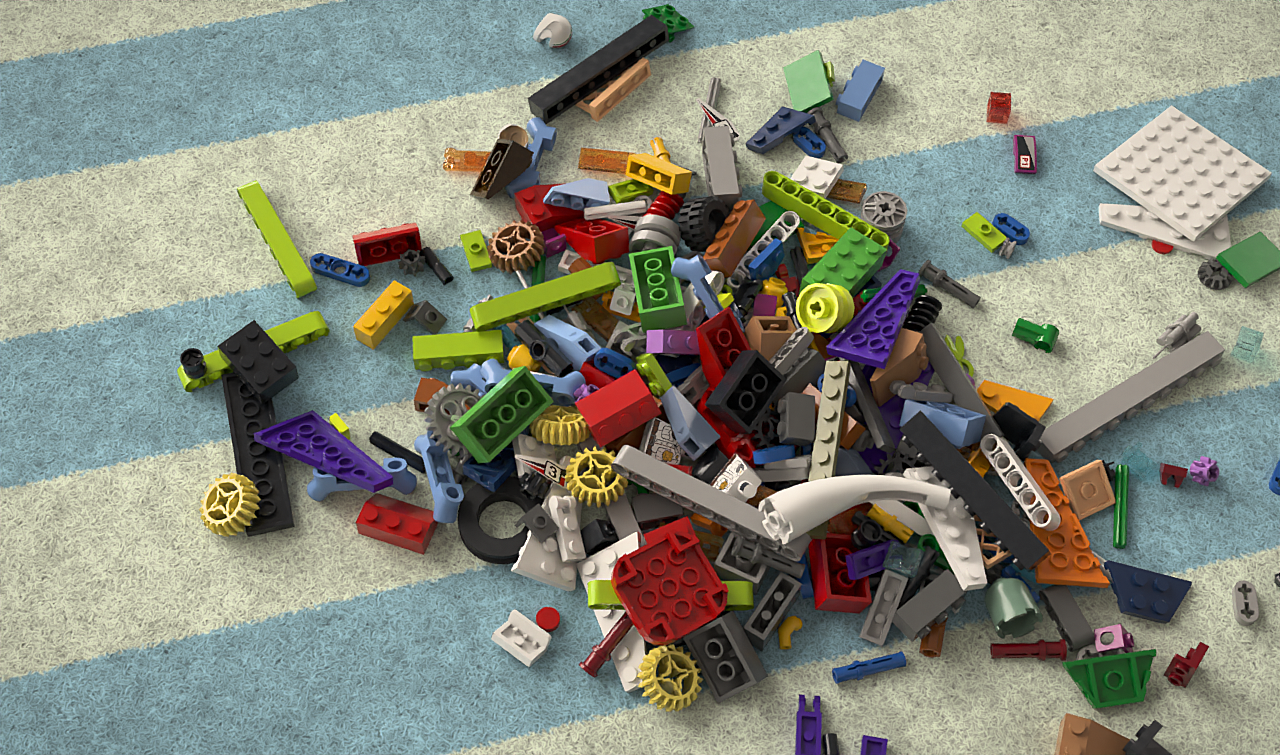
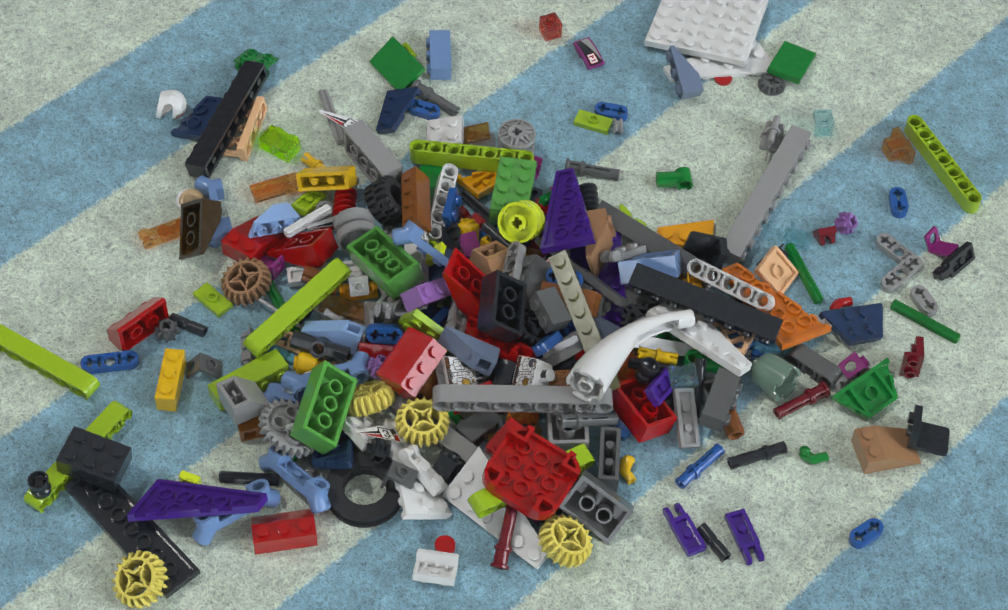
camera: 30 degrees left, 5 degrees down
(432, 366) = (241, 398): none -> light grey slope
(566, 60) = (197, 122): none -> dark blue wing
(638, 116) = (279, 143): none -> clear neon green brick
(942, 687) = (765, 452): none -> black pin
(1000, 719) = (812, 458): none -> green arm
(1117, 226) = (686, 78): none -> sand blue slope
(1142, 559) = (841, 302): none -> red arm
(1232, 628) = (925, 321): none -> green axle
(1247, 547) = (902, 261): none -> light grey beam

